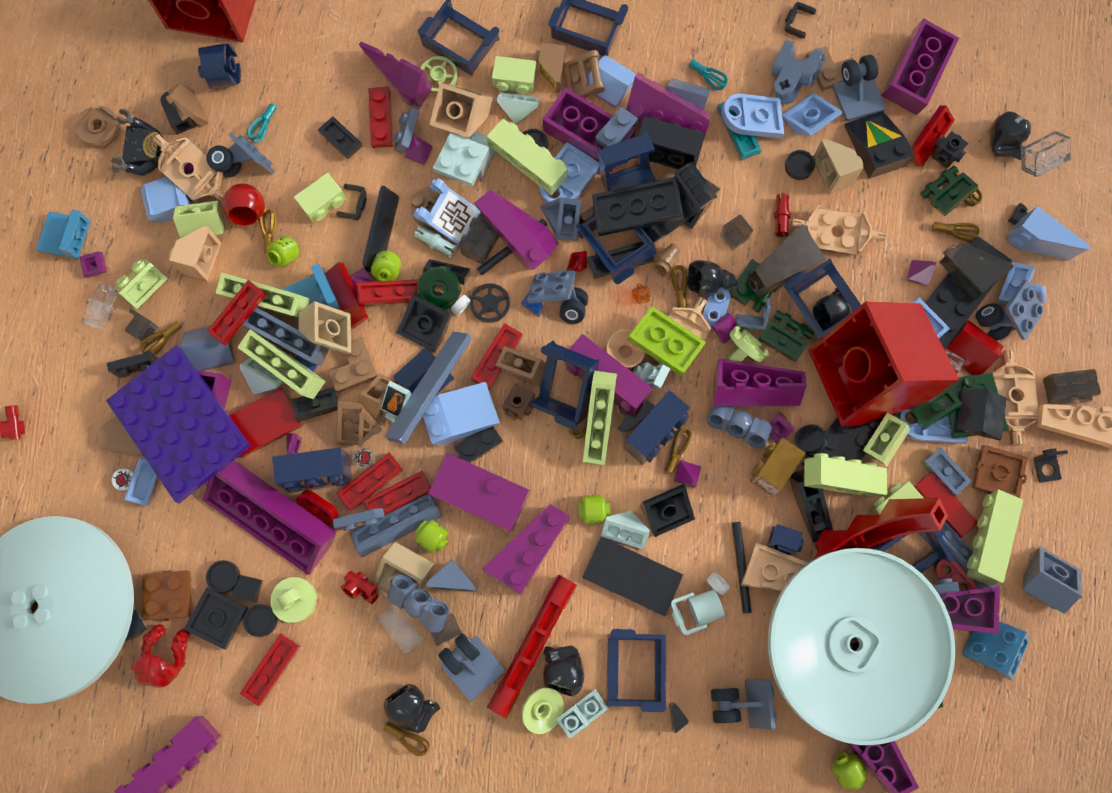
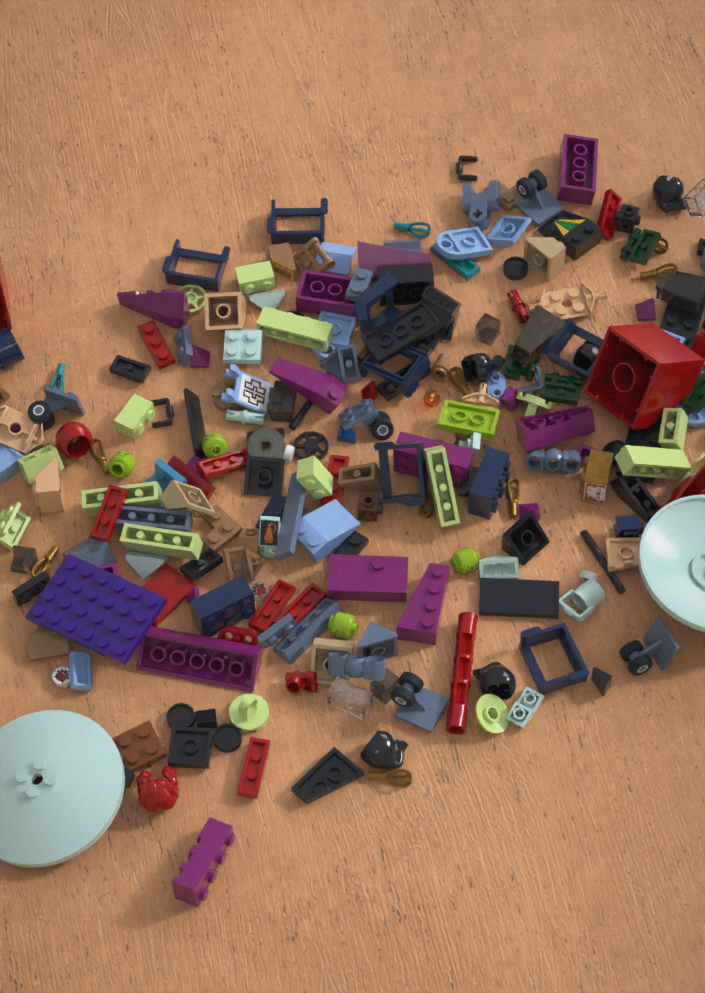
camera: 20 degrees left, 20 degrees down
(340, 711) = (327, 776): none -> black wing
(469, 352) = (314, 477): none -> yellowish green brick

